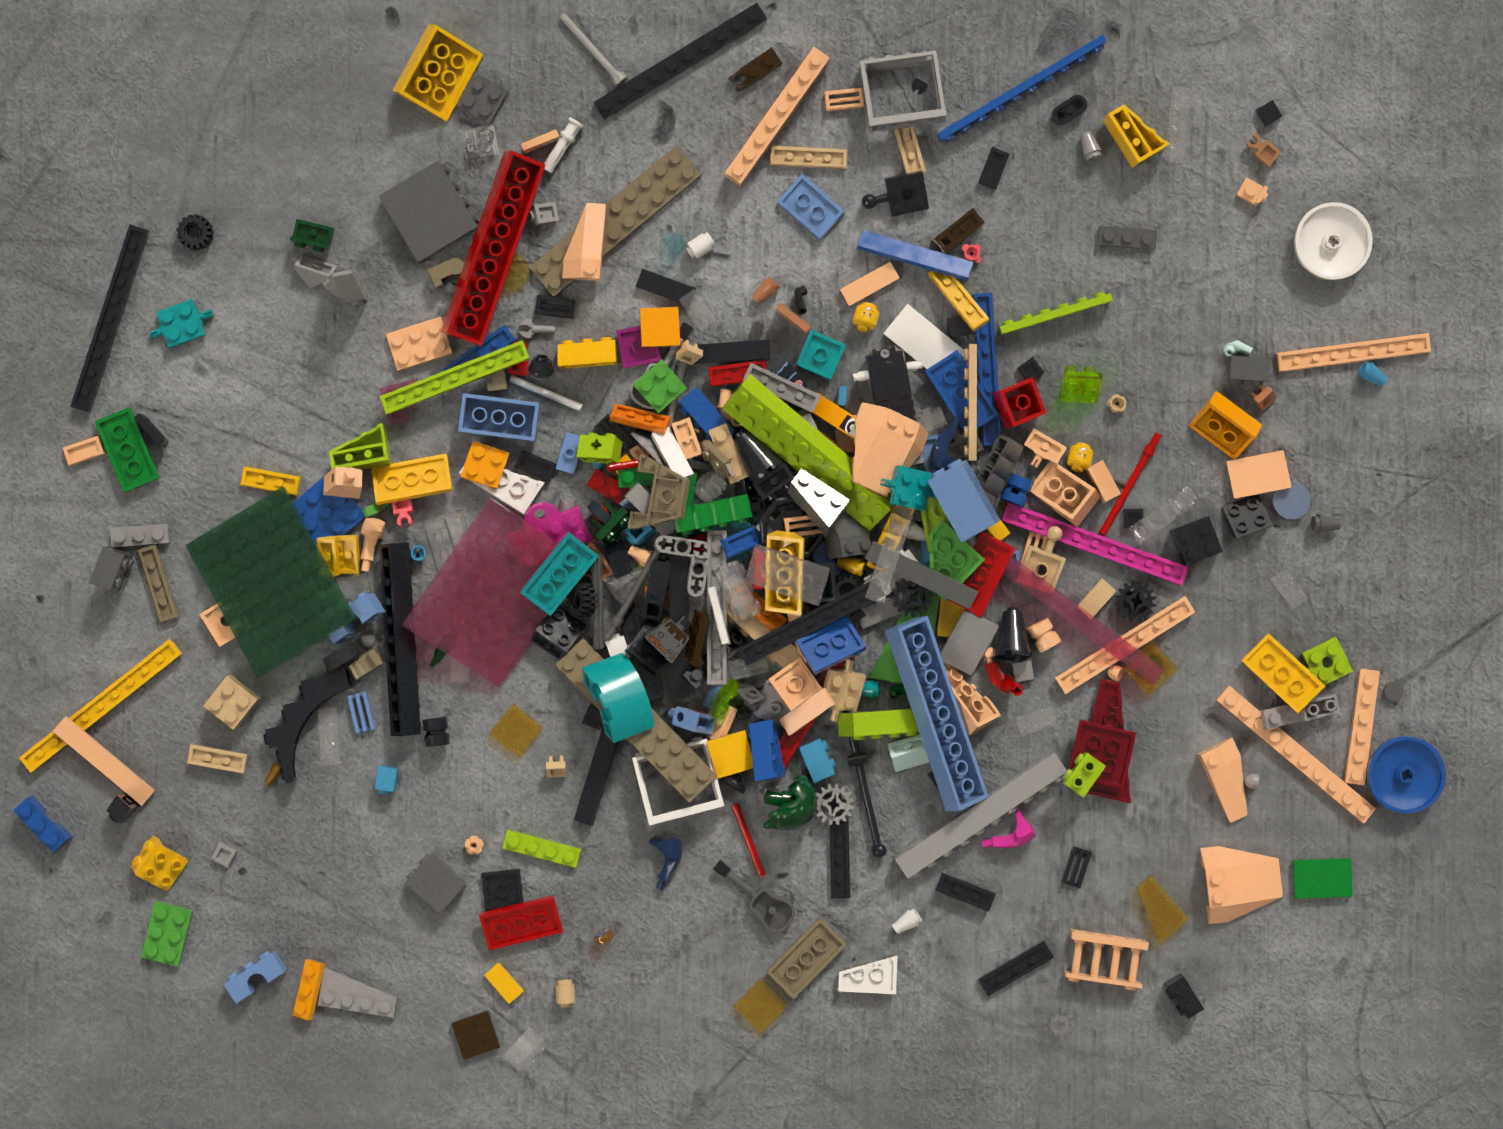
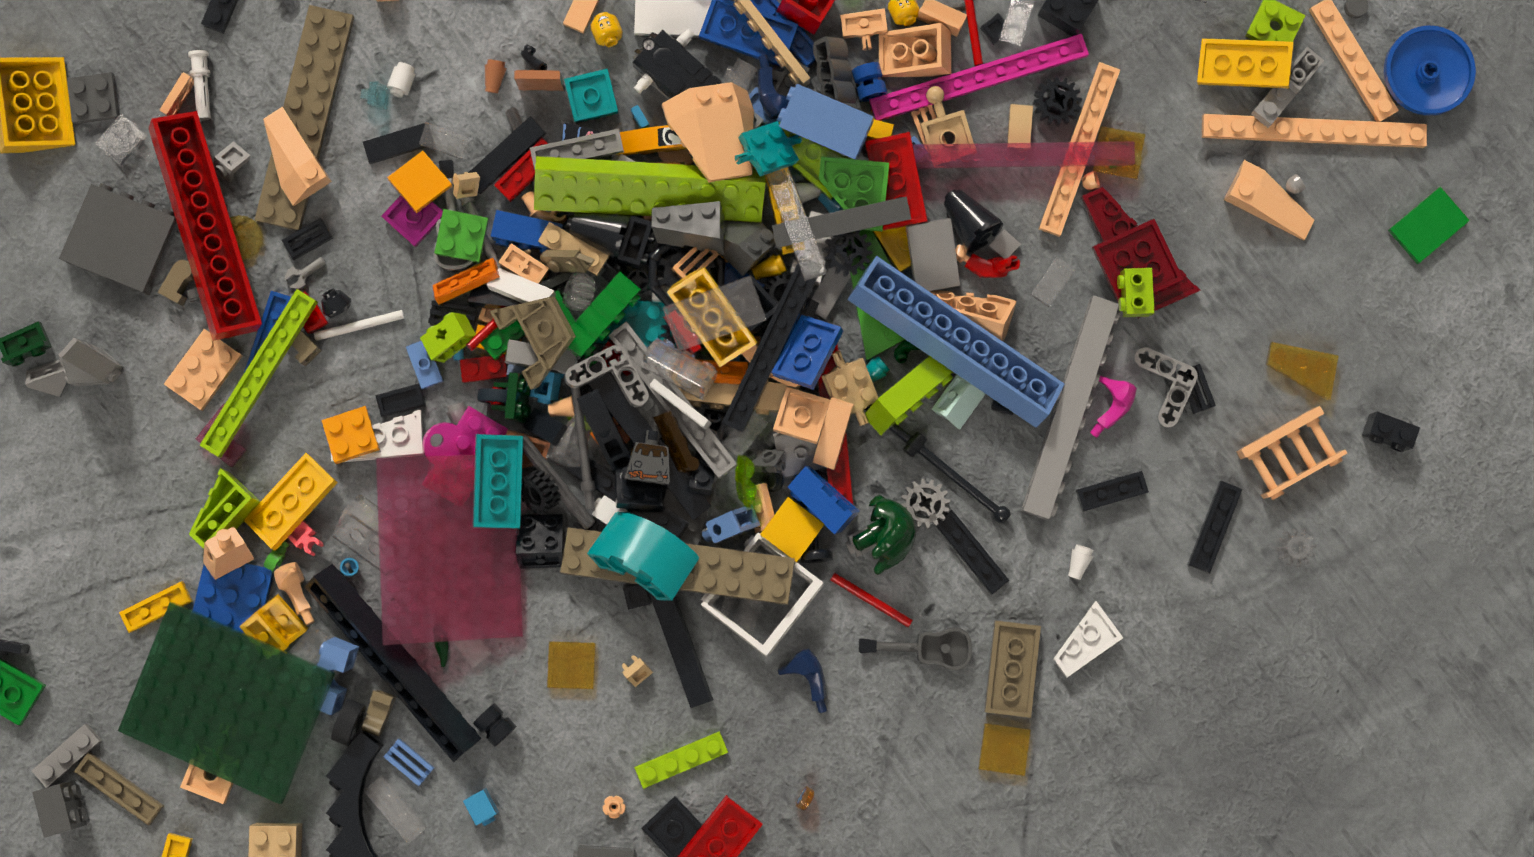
camera: 45 degrees left, 5 degrees down
(367, 639) = (363, 687): light grey hinge -> none
(499, 417) = (330, 379): medium blue brick -> none
(587, 353) = (370, 258): yellow slope -> none
(712, 692) = (731, 492): medium blue arm -> none
(740, 542) = (647, 323): blue tile -> none
(817, 759) = (878, 473): dark azure brick -> none
(1042, 633) = (998, 196): light nougat wheel -> none
(1066, 854) = (1178, 383): none -> light grey beam
(1238, 882) = (1356, 288): light nougat wedge -> none

